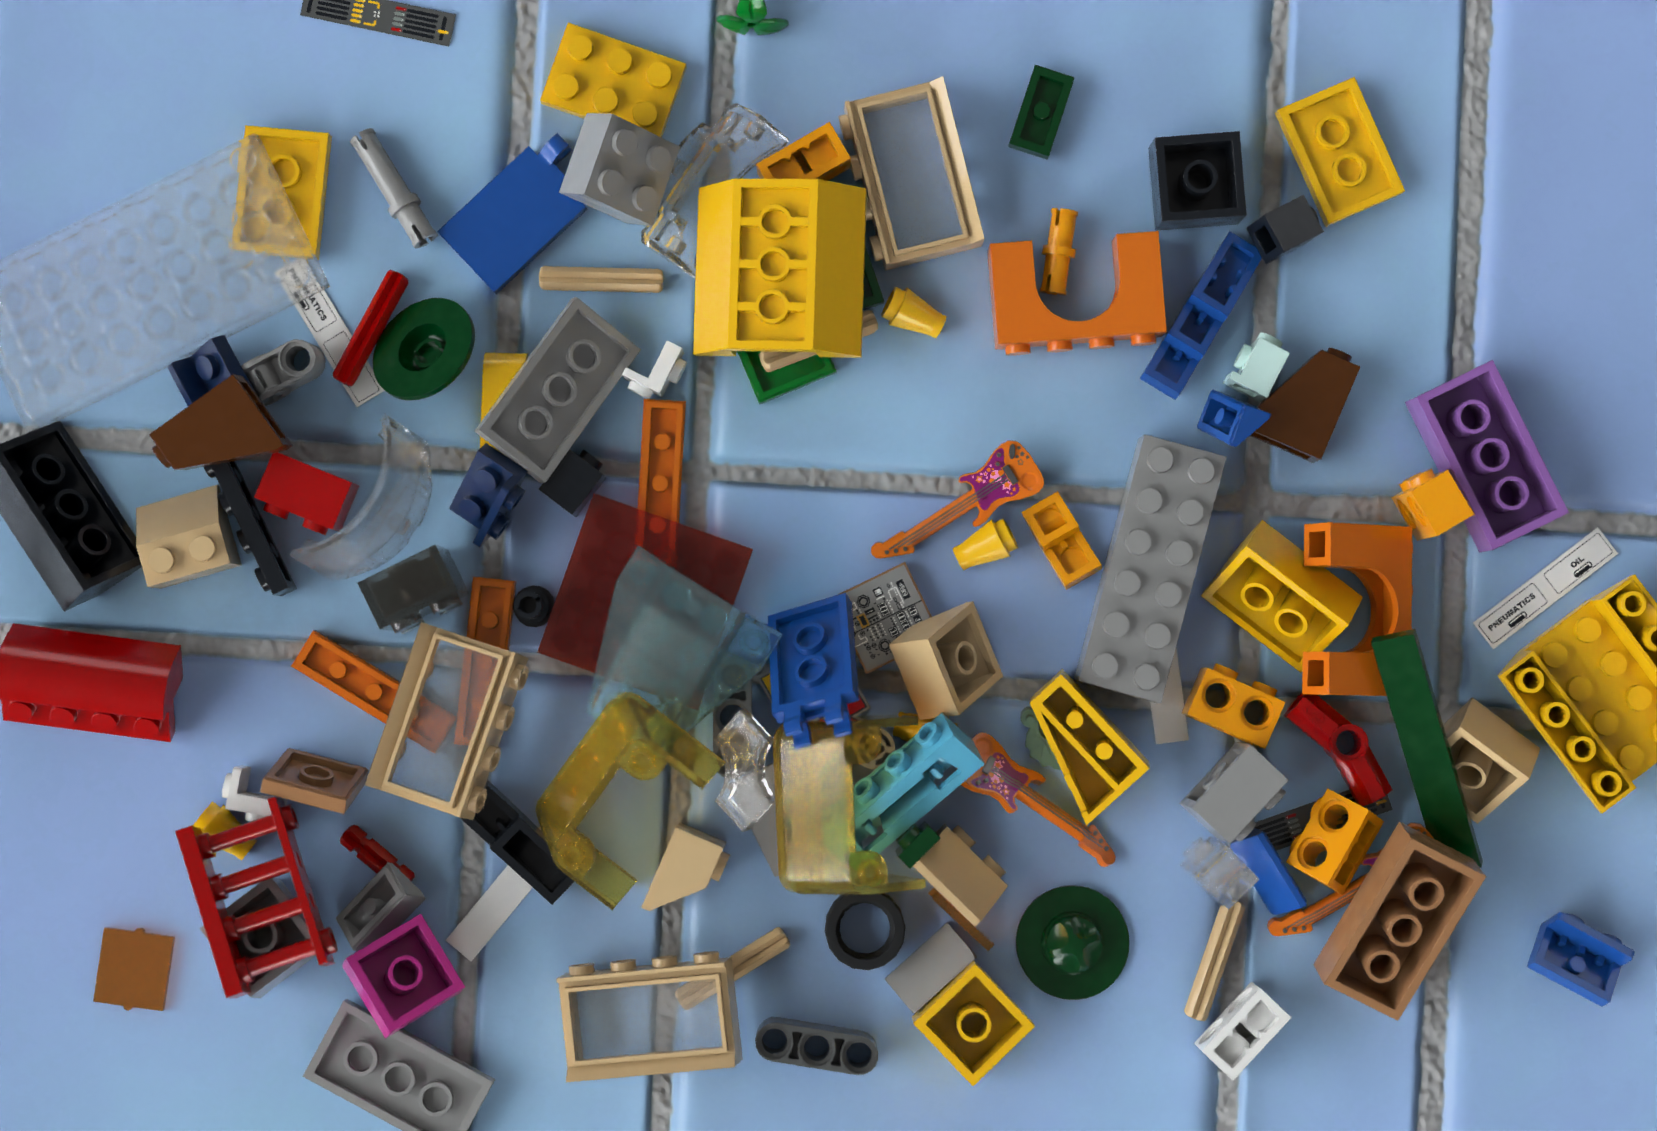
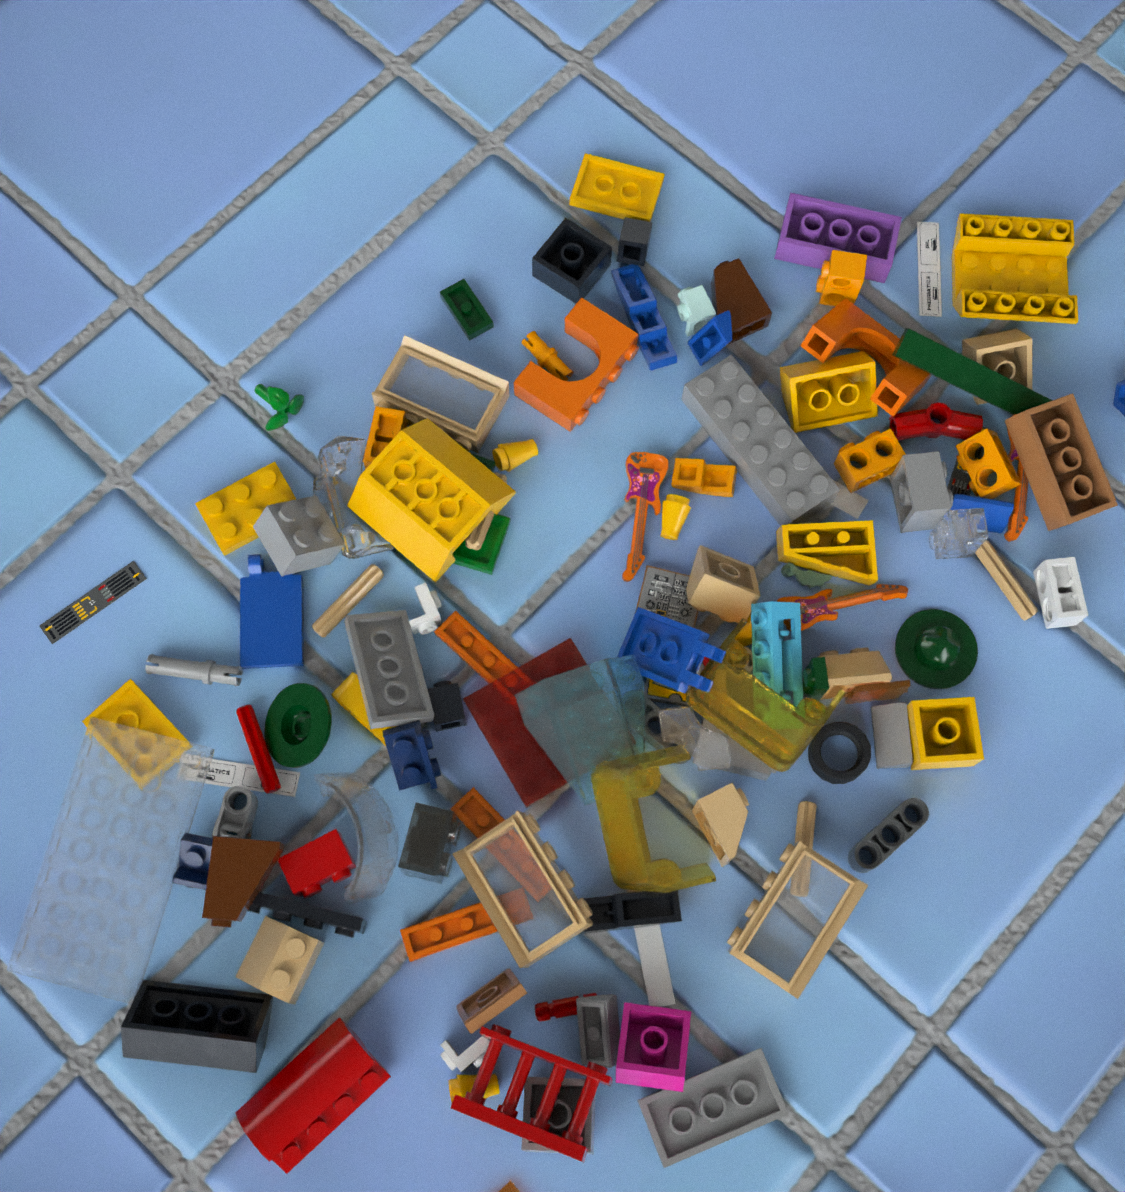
camera: 45 degrees left, 15 degrees down
(533, 606) = (497, 789): black pin -> none

